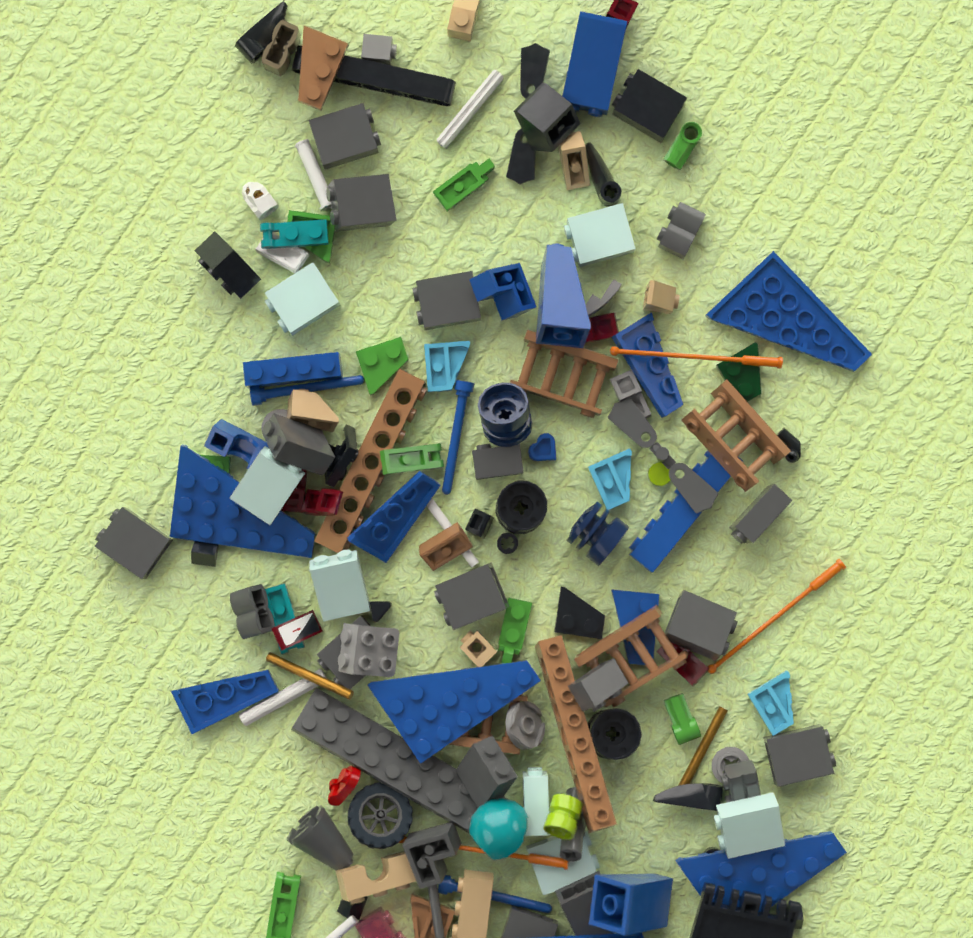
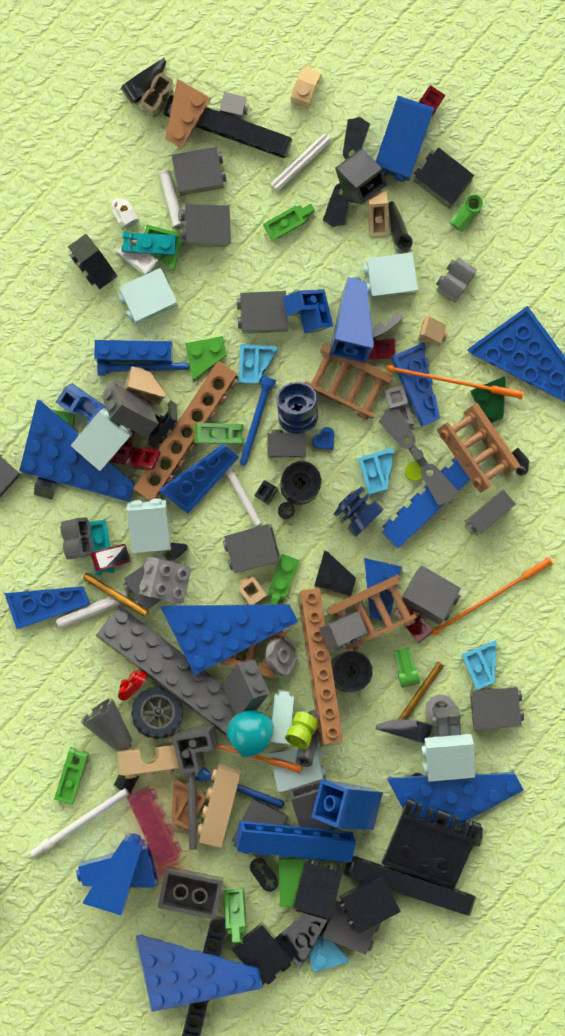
camera: 10 degrees right, 0 degrees up
(444, 546) = (236, 507): medium nougat slope -> none

